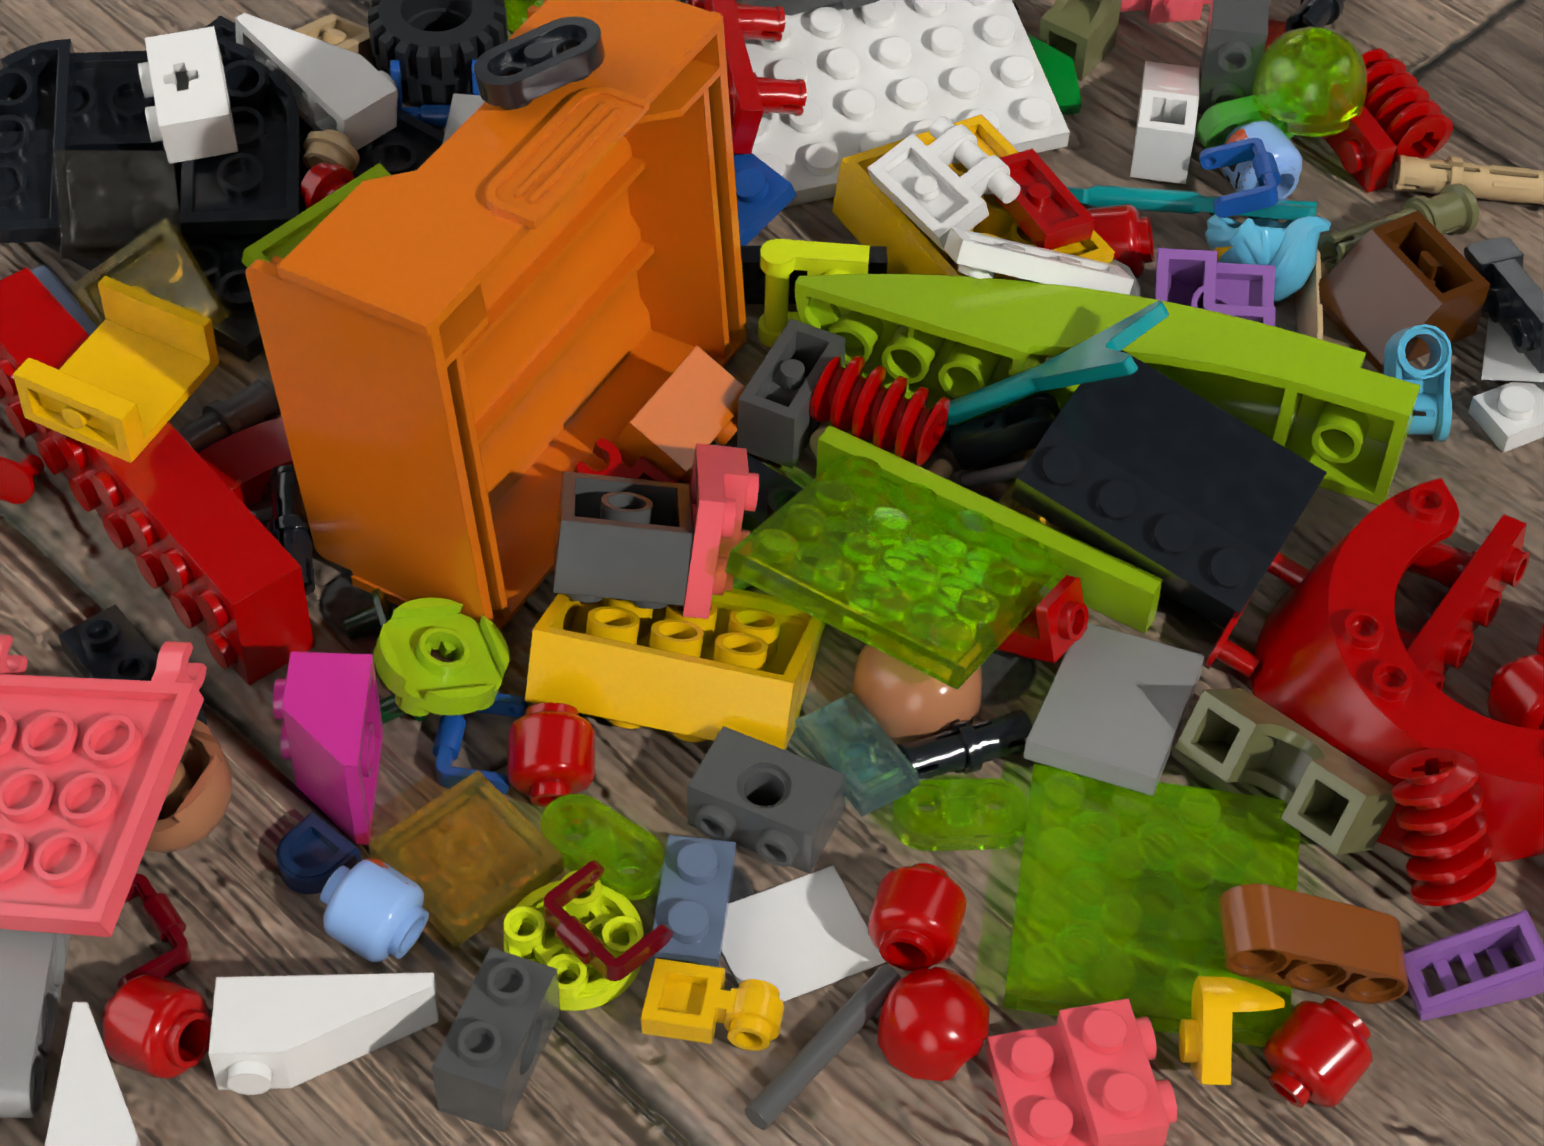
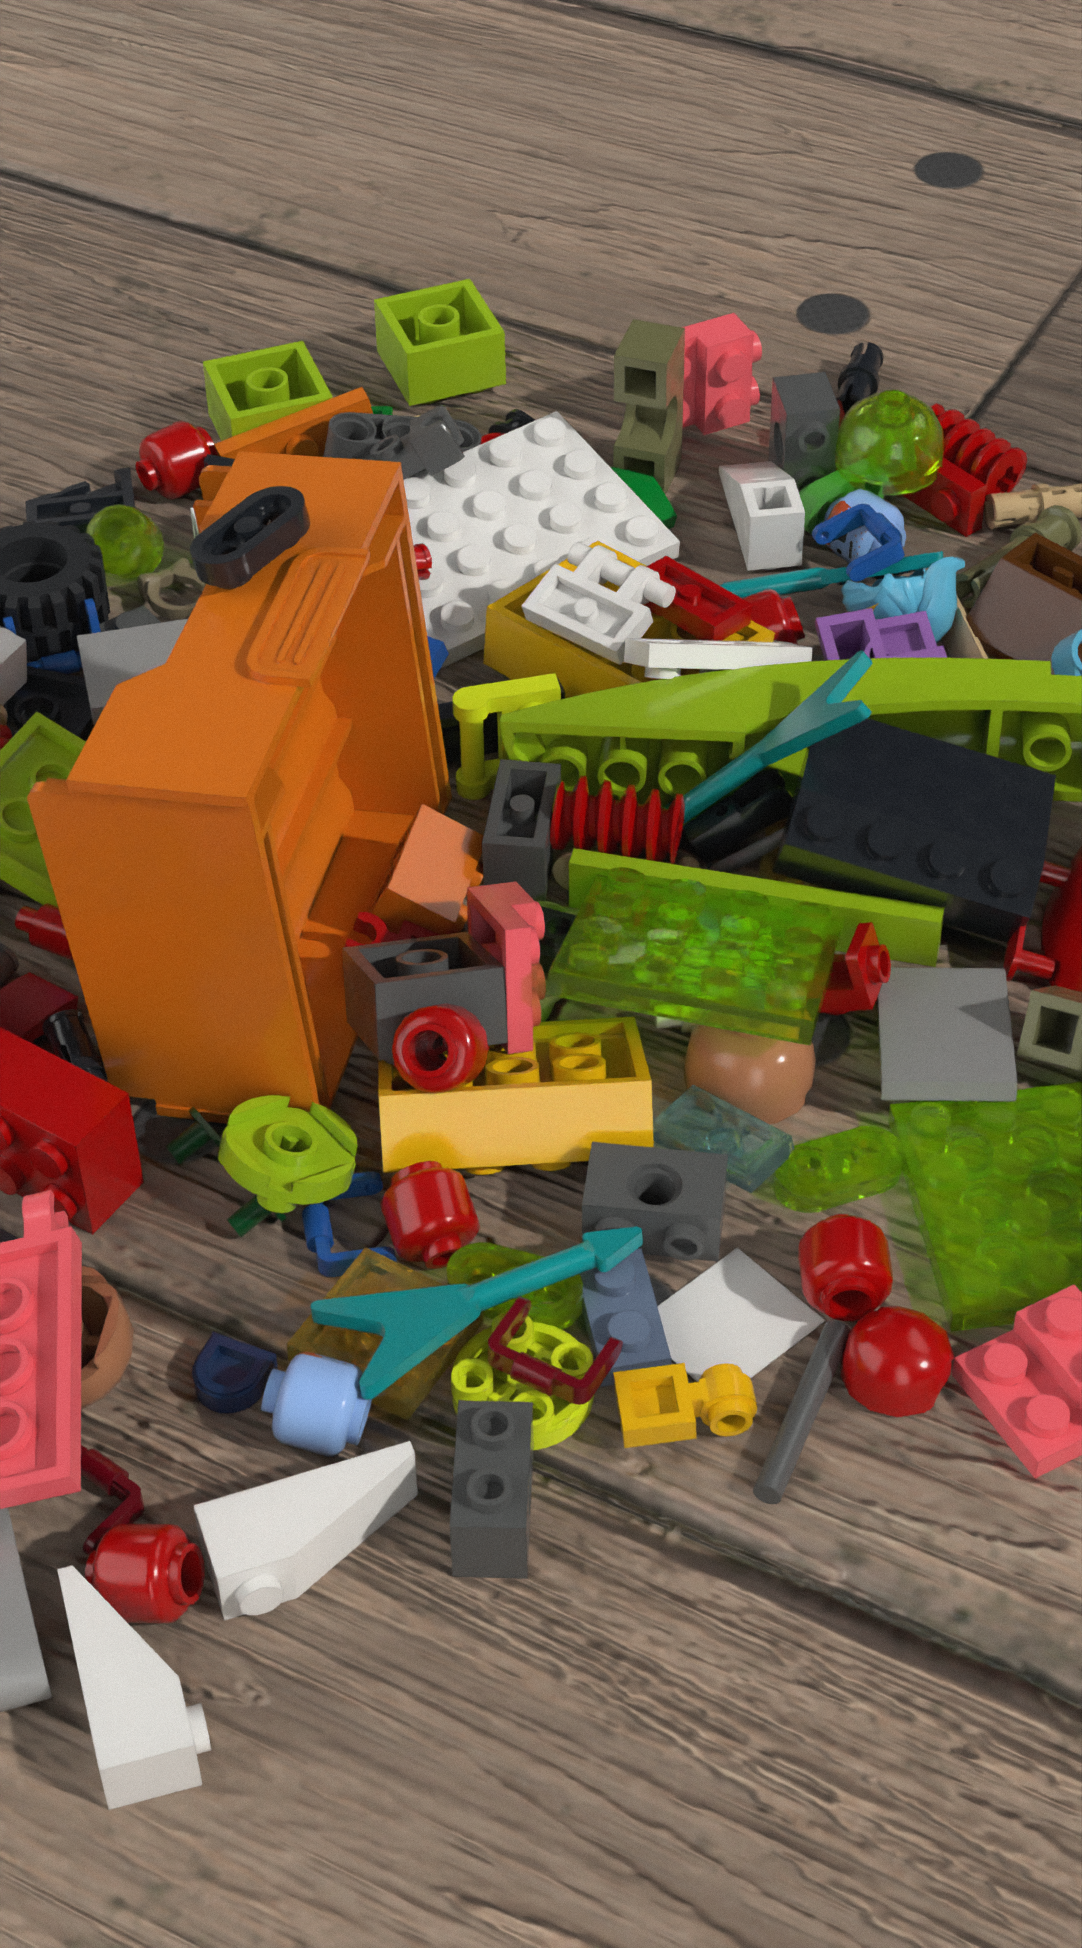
camera: 15 degrees left, 5 degrees down
(333, 734) = (213, 1251): dark pink slope -> none
(500, 855) = (426, 1318): none -> teal piece
(604, 598) = (421, 1057): none -> red head
(968, 746) = (826, 1102): black pin -> none

